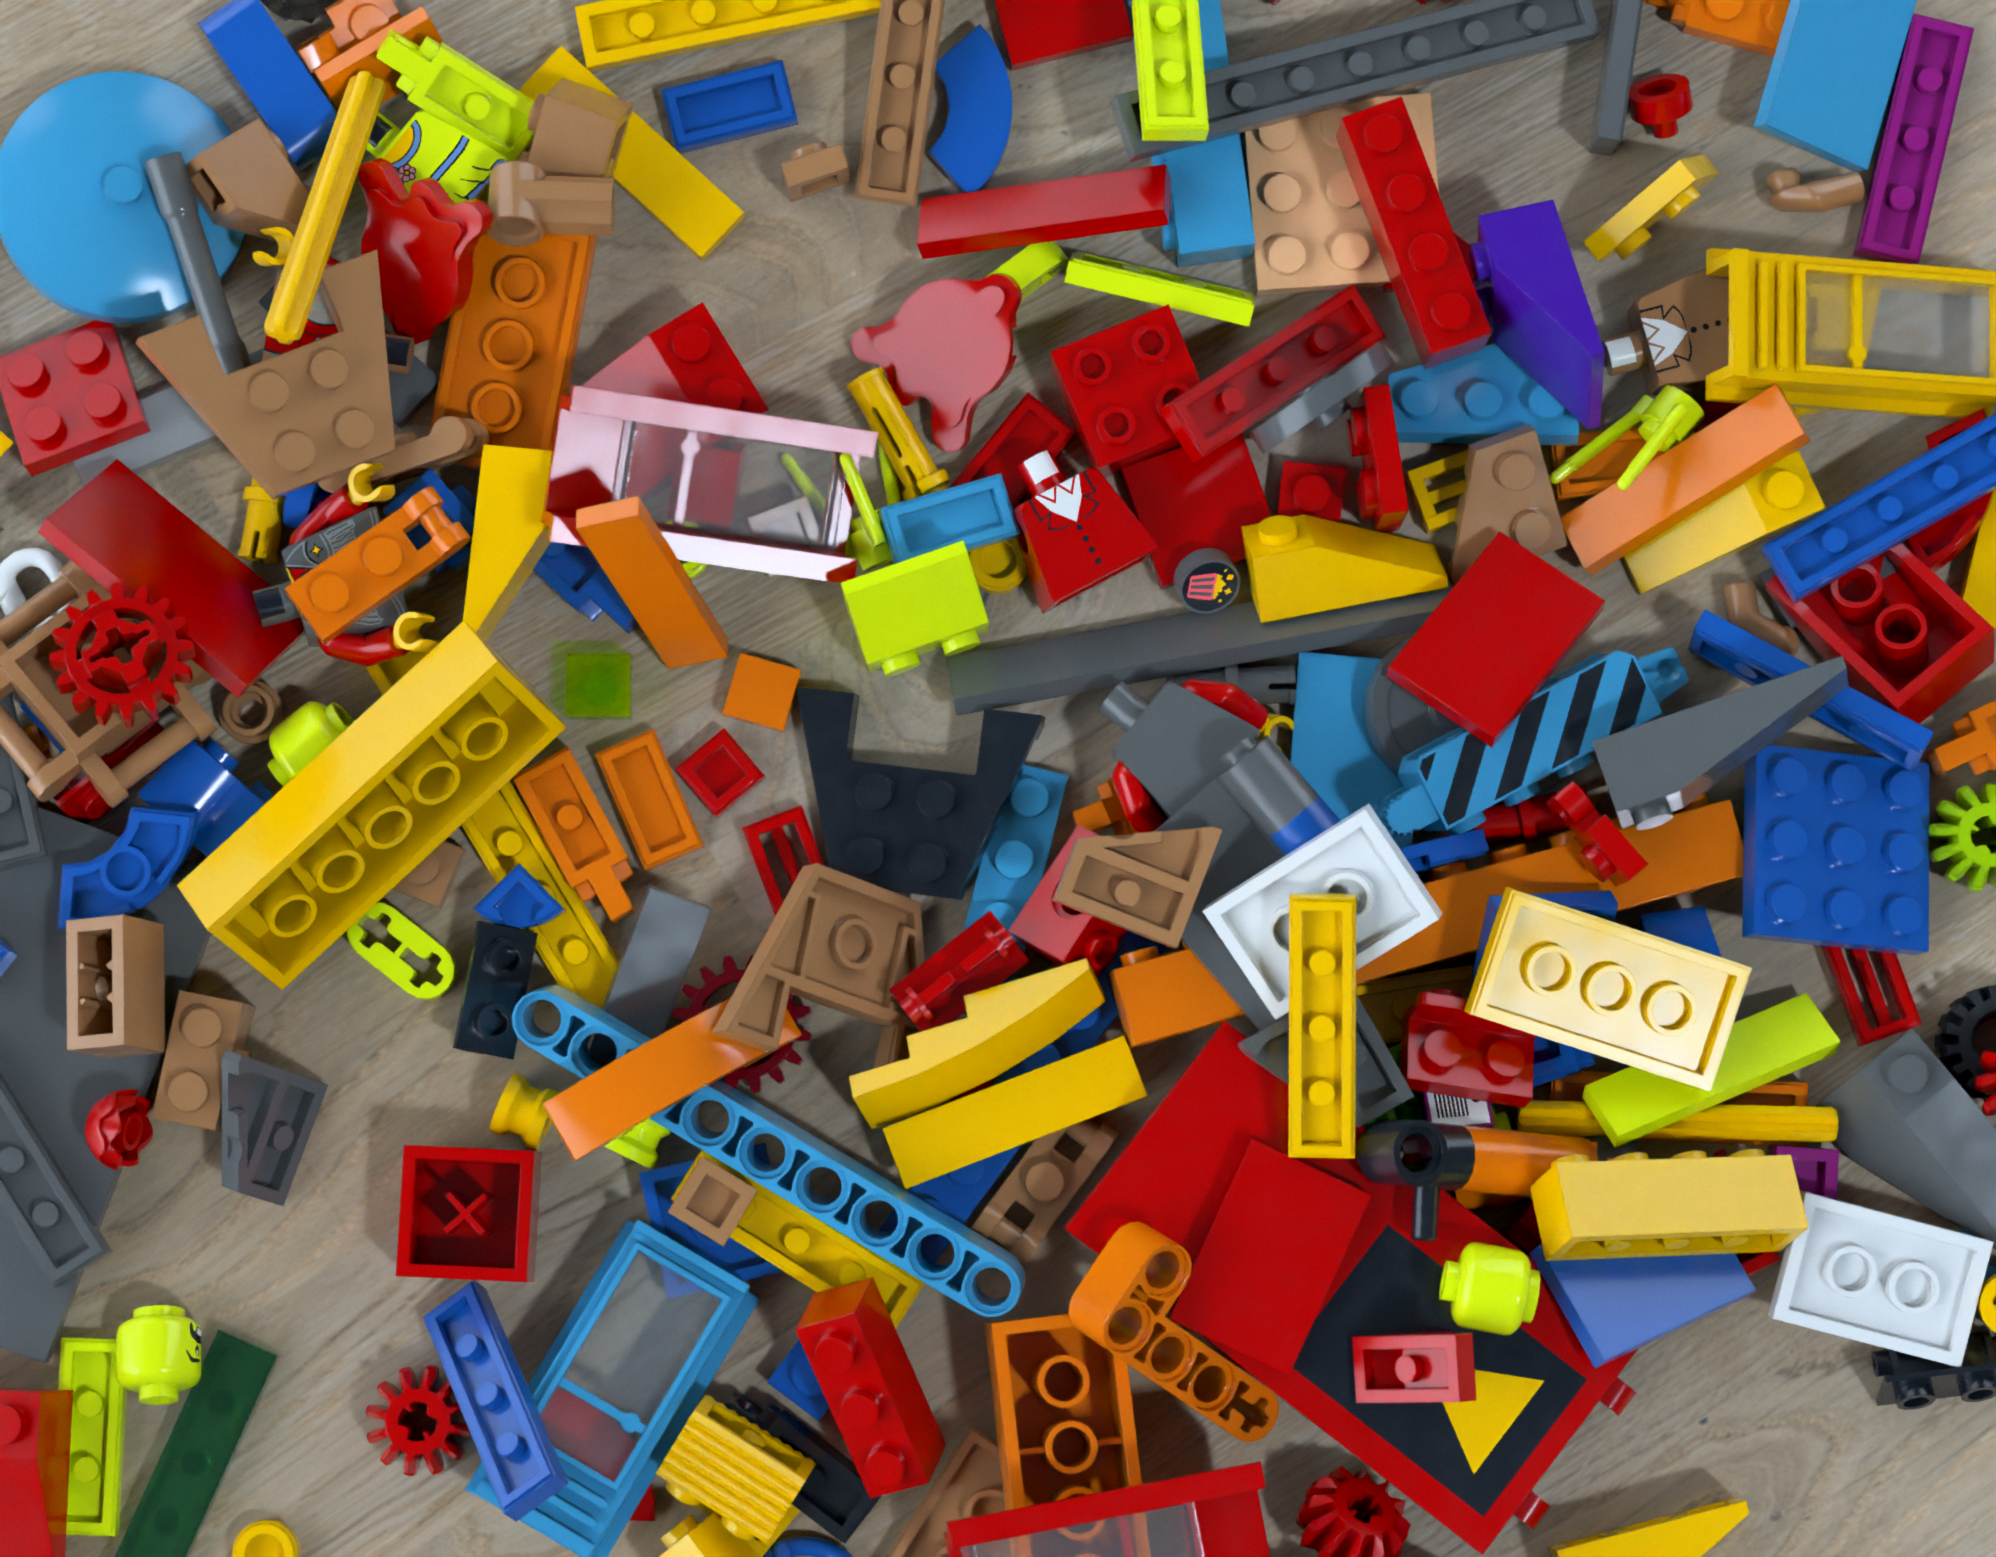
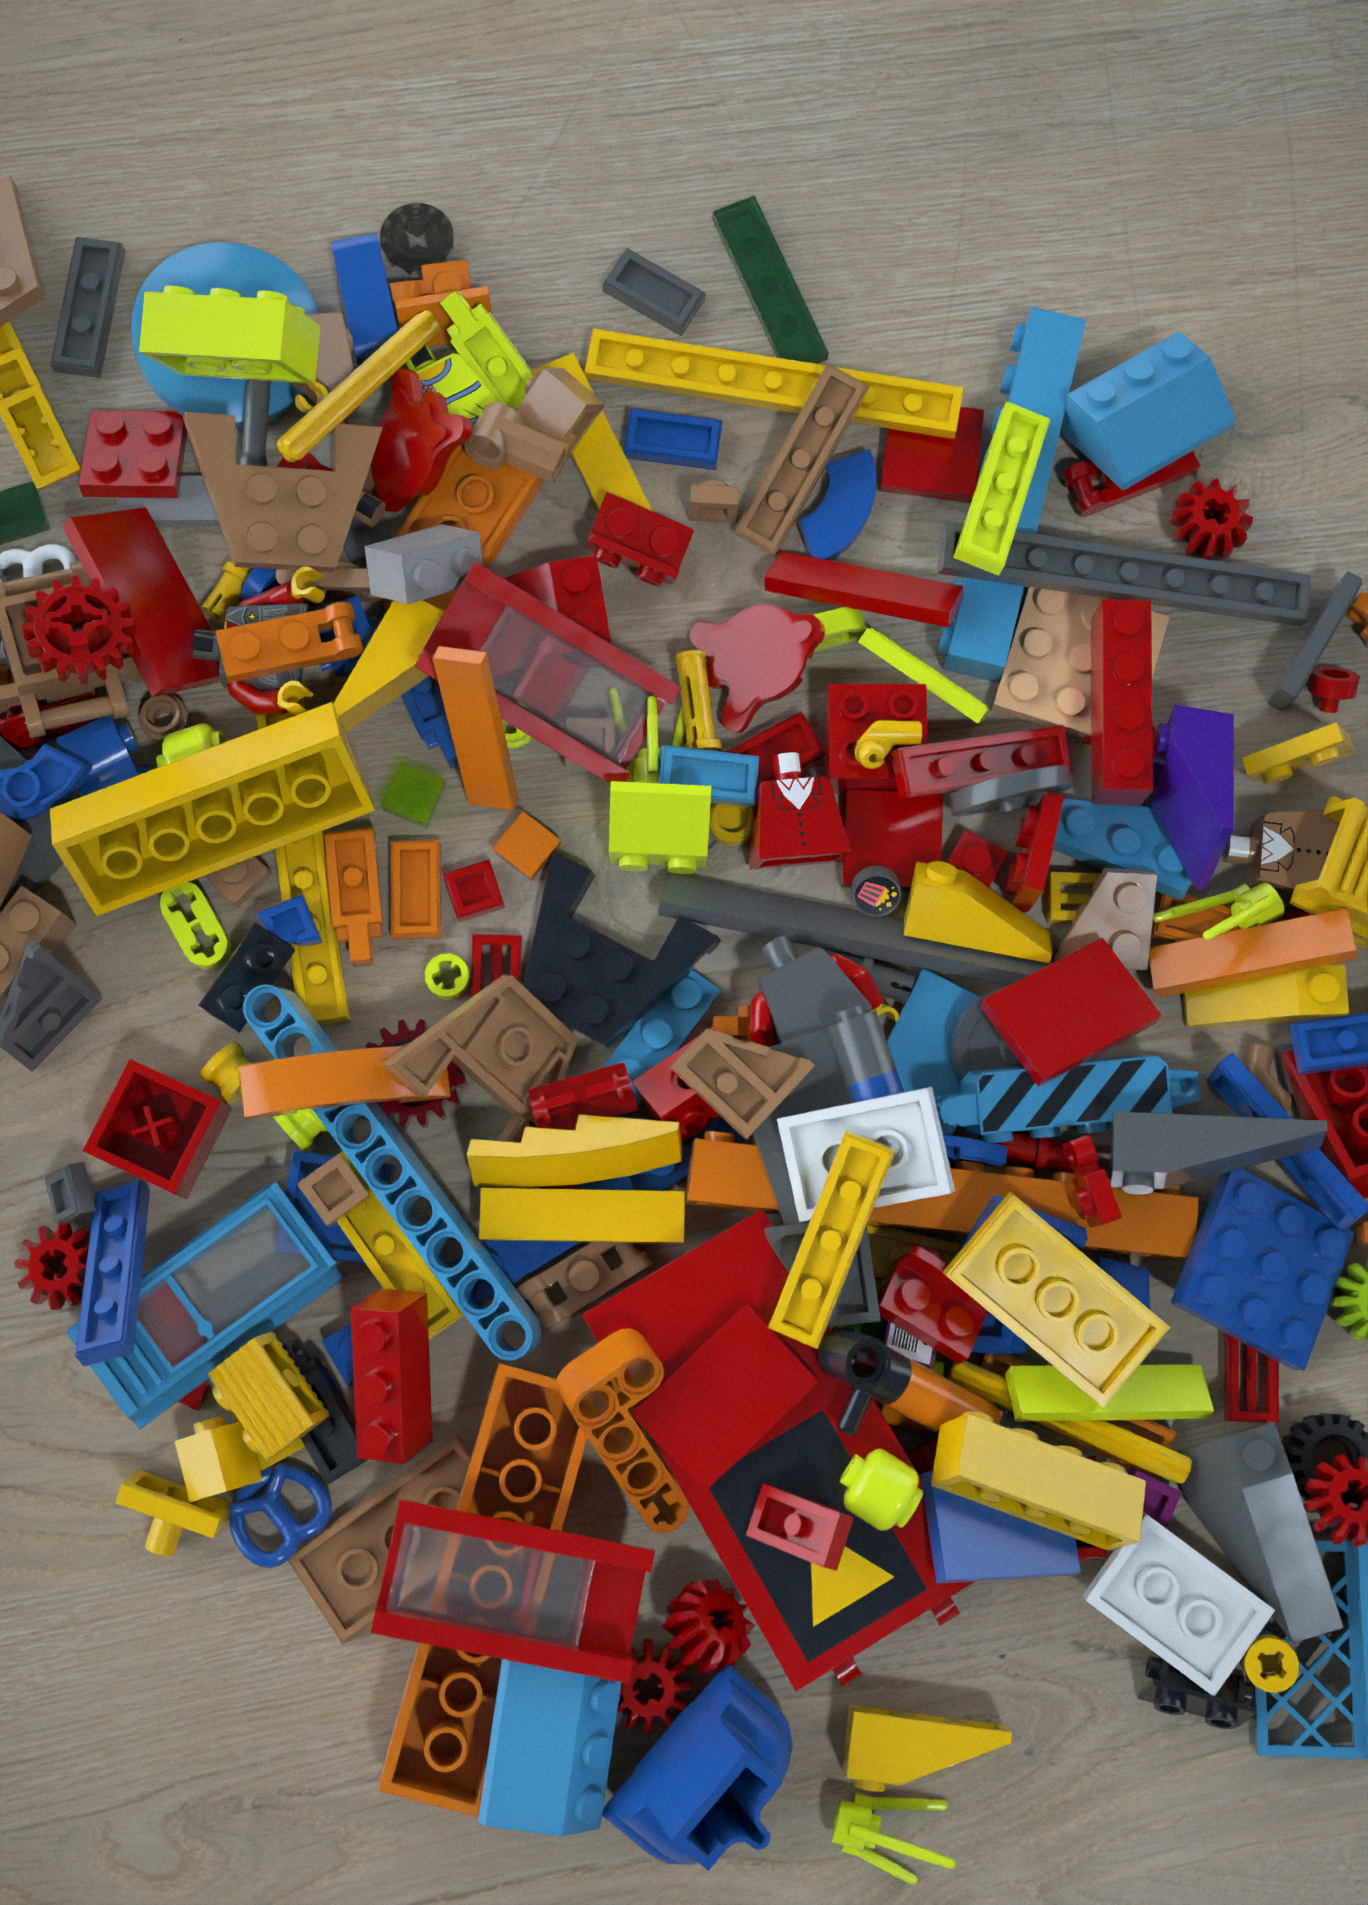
camera: 20 degrees right, 5 degrees down
(146, 212) = (230, 335): none -> neon yellow brick
(395, 1331) = (70, 1193): none -> dark grey tile
(501, 403) = (422, 563): none -> light grey brick
(651, 967) = (367, 1003): dark grey tile -> none
(713, 889) = (434, 970): none -> neon yellow bush
(742, 256) = (638, 540): none -> red bracket
(1142, 398) = (882, 737): none -> yellow arm

